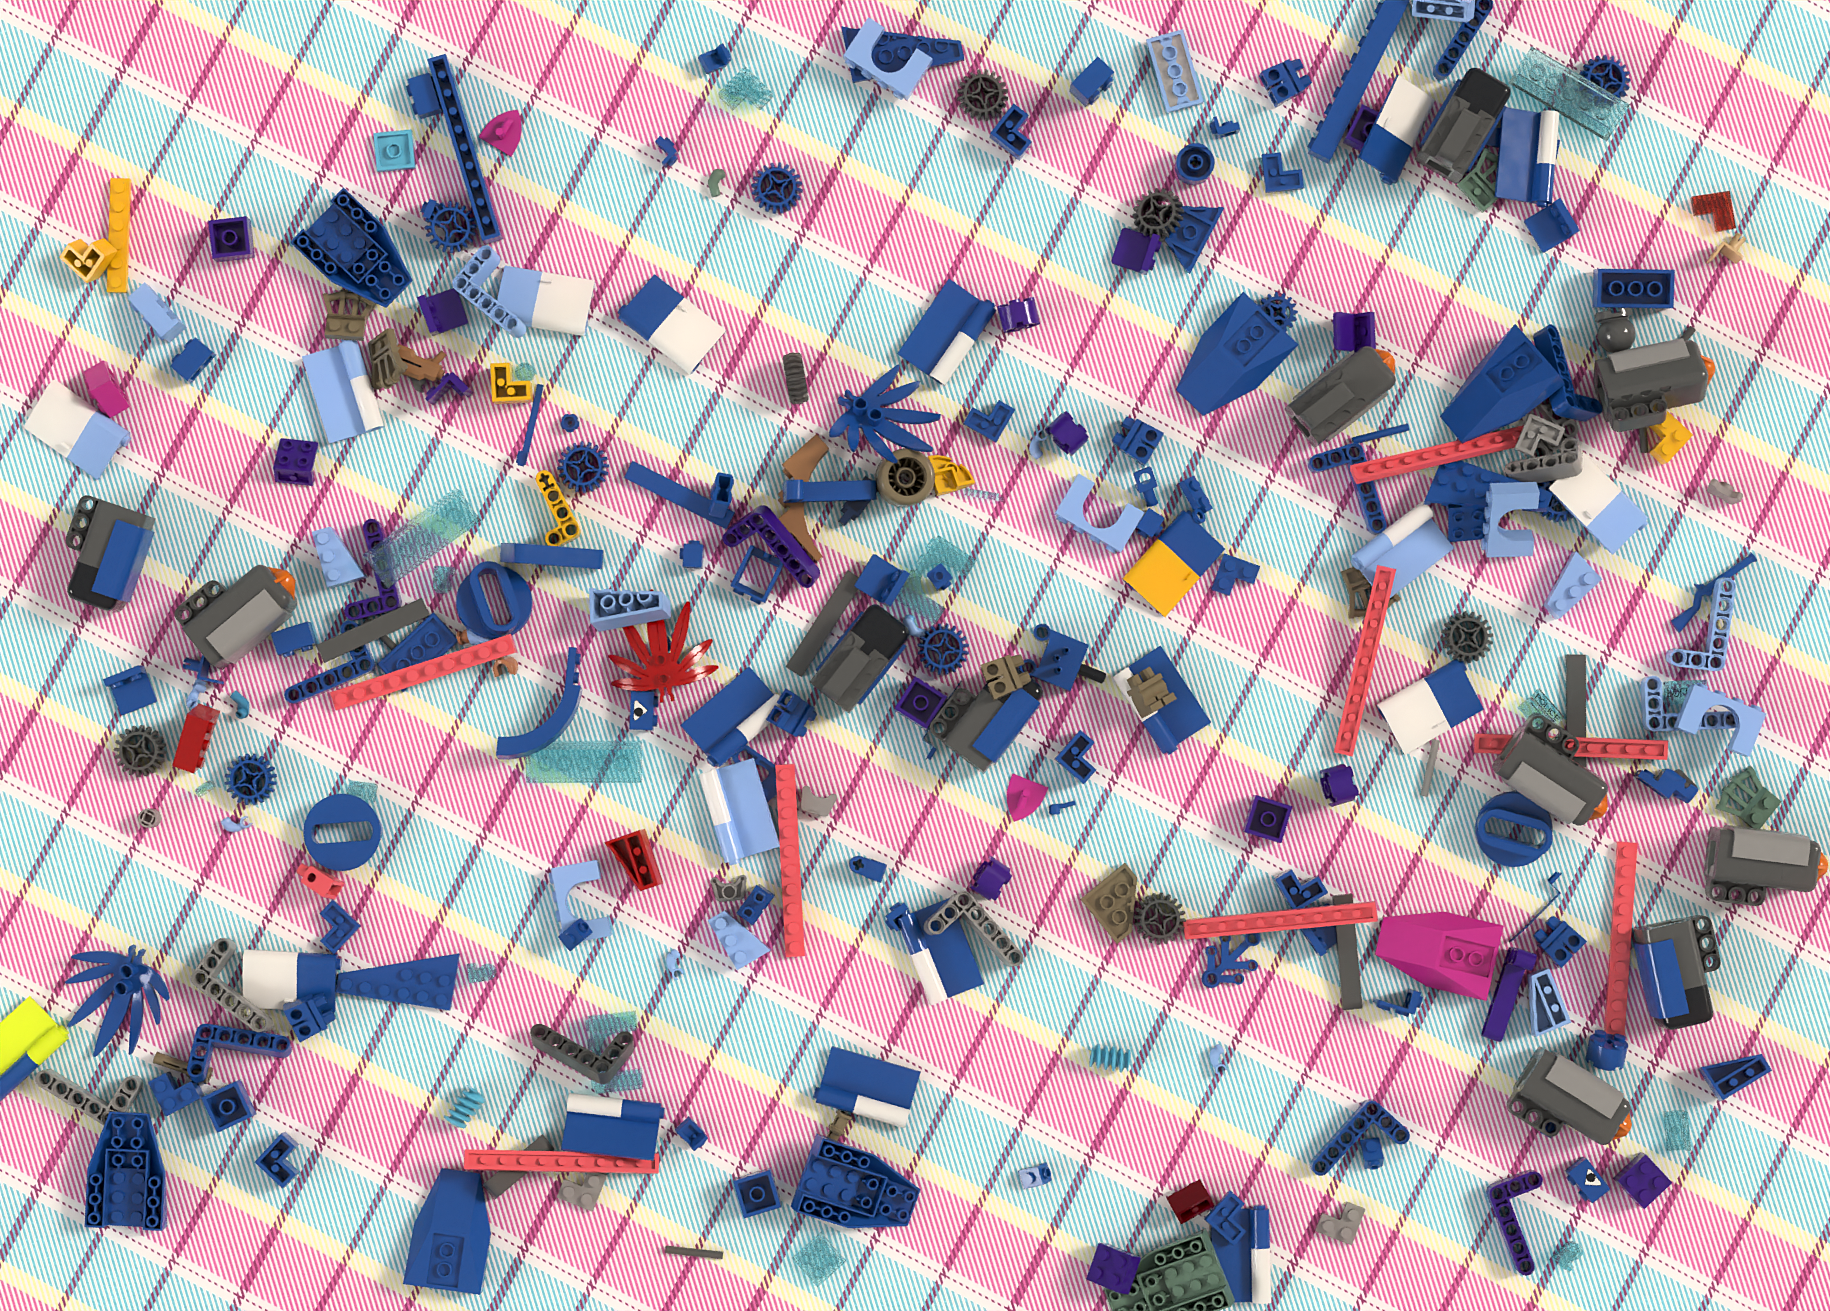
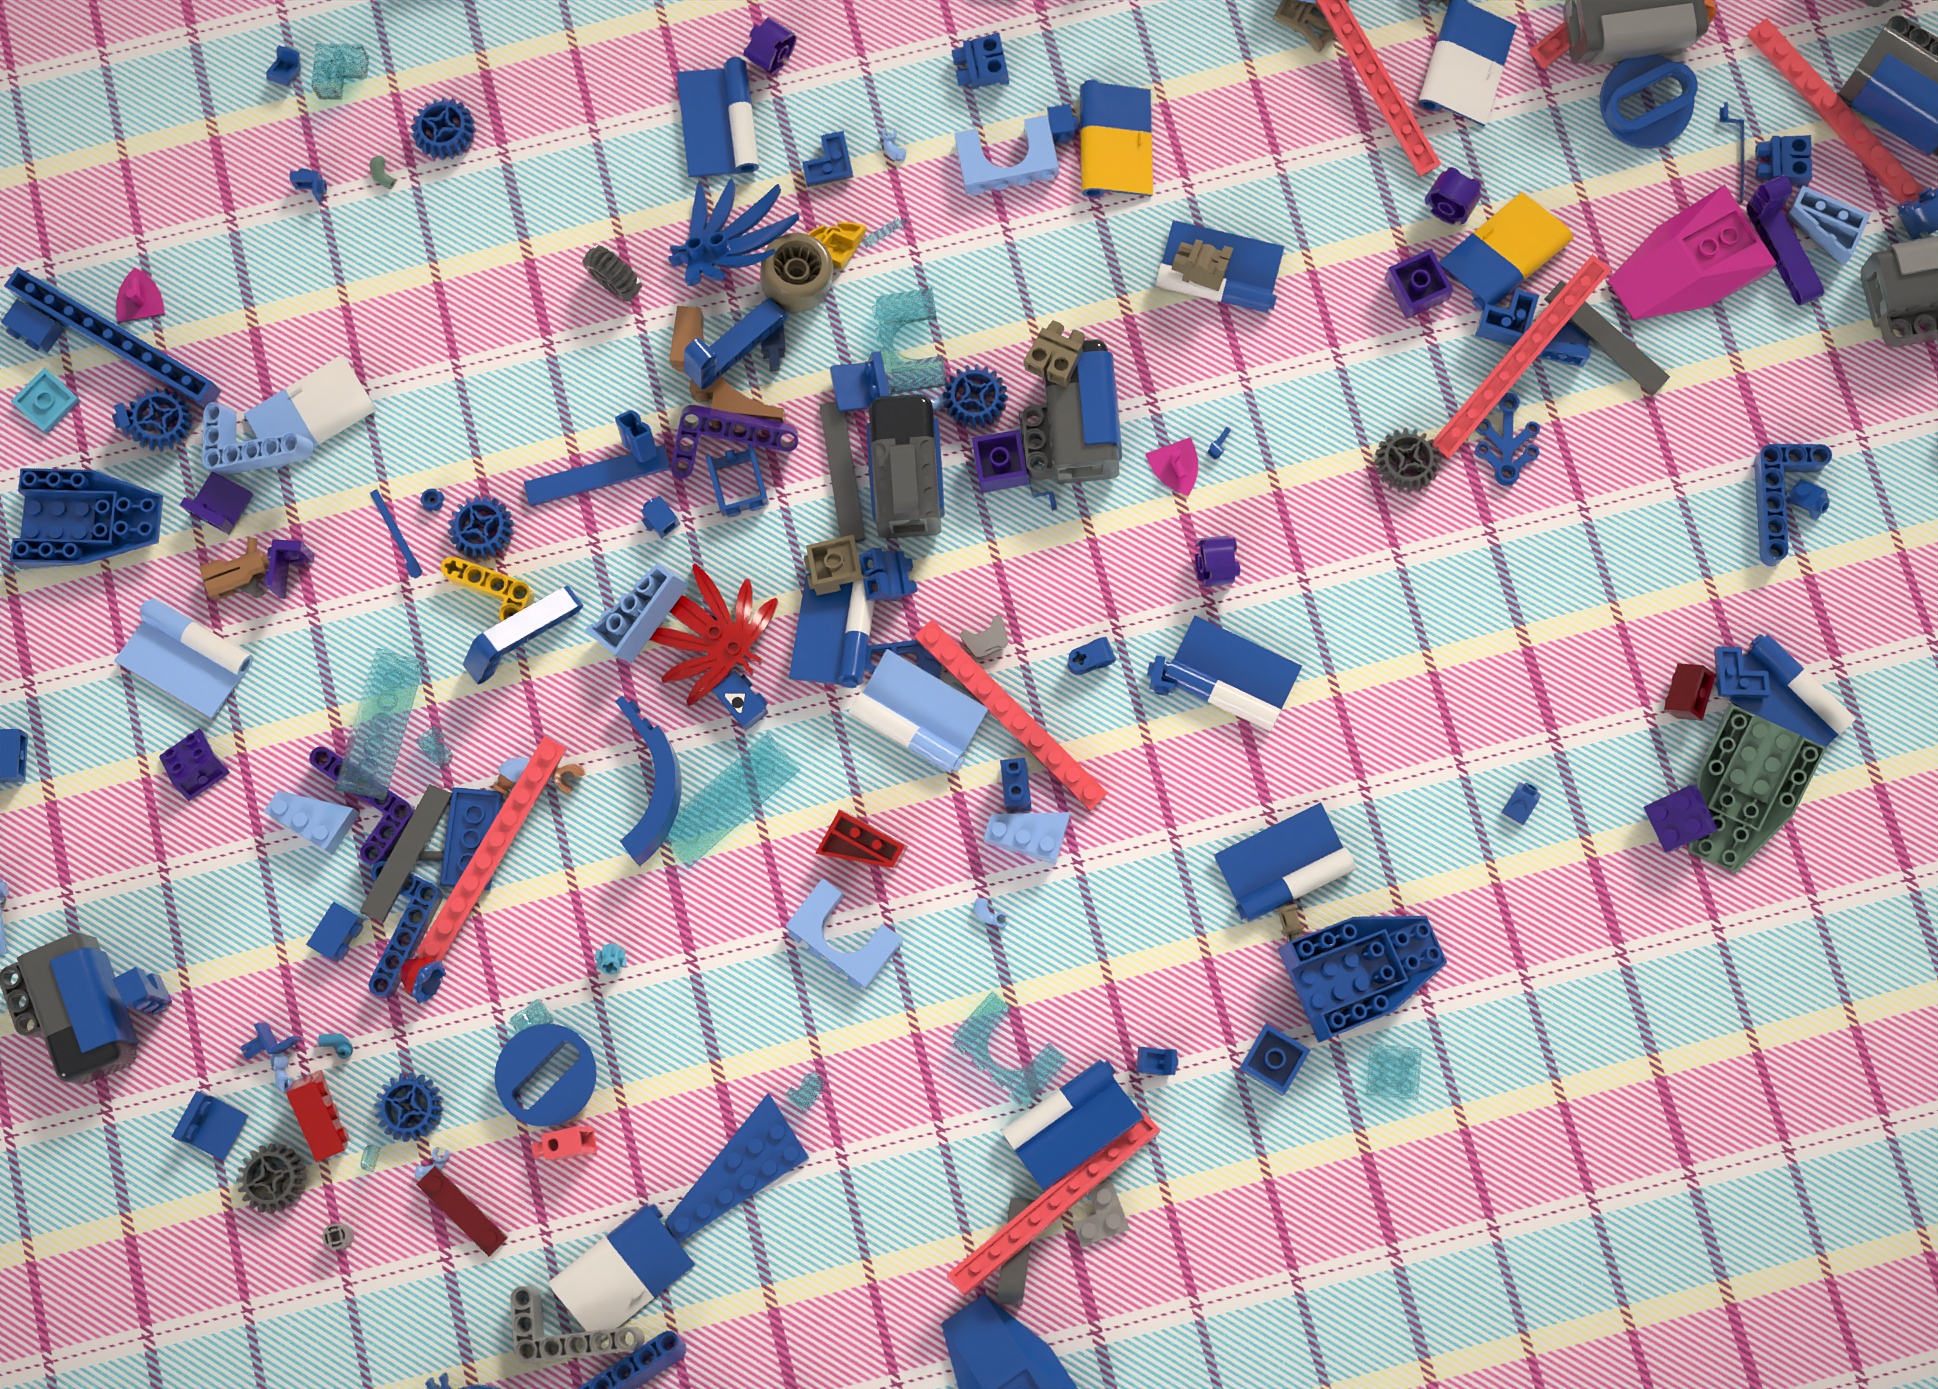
camera: 30 degrees left, 10 degrees down
(155, 580) = (142, 991): none -> blue arch
(231, 865) = (462, 1211): none -> dark red plate
(239, 616) = (260, 954): piece -> none
(307, 1016) = (669, 1291): blue hips -> none
(320, 711) = (422, 977): none -> blue hair
(343, 926) = (629, 1169): blue plate -> none
(345, 325) = (131, 594): dark tan plate -> none
(385, 359) = (187, 587): dark tan plate -> none
(436, 796) = (610, 958): none -> medium azure gear
(465, 1108) = (910, 1240): medium azure piece -> none
(473, 607) = (491, 744): blue piece -> none
(505, 389) = (346, 518): yellow brick -> none
(525, 372) = (348, 491): clear light blue tile -> none
(575, 934) = (866, 966): blue bracket -> none
(581, 1055) = (982, 1082): dark grey beam -> none
(671, 324) = (451, 330): door -> none
(694, 1252) = (1266, 1178): dark grey bar -> none
(729, 891) = (979, 797): light grey piece -> none
(767, 678) = (832, 564): none -> dark tan plate
(940, 577) = (913, 332): blue bracket -> none
(977, 925) = (1245, 616): light grey beam -> none
(1062, 661) = (1095, 307): blue piece -> none
(1067, 434) = (911, 108): dark purple brick -> none
(1072, 757) = (1188, 386): blue brick -> none
(1110, 1058) = (1486, 625): medium azure piece -> none
(1114, 902) = (1351, 484): dark tan plate -> none
(1146, 487) = (1027, 94): blue bracket -> none
(1196, 498) = (1087, 66): blue hinge -> none
(1214, 1057) = (1578, 540): light blue arm -> none
(1231, 569) = (1173, 103): blue plate -> none
(1340, 844) = (1506, 250): none -> door
(1343, 1228) = (1852, 588): light grey plate -> none
(1412, 1001) = (1709, 328): blue bracket -> none
(1430, 767) = (1519, 116): light grey bar -> none

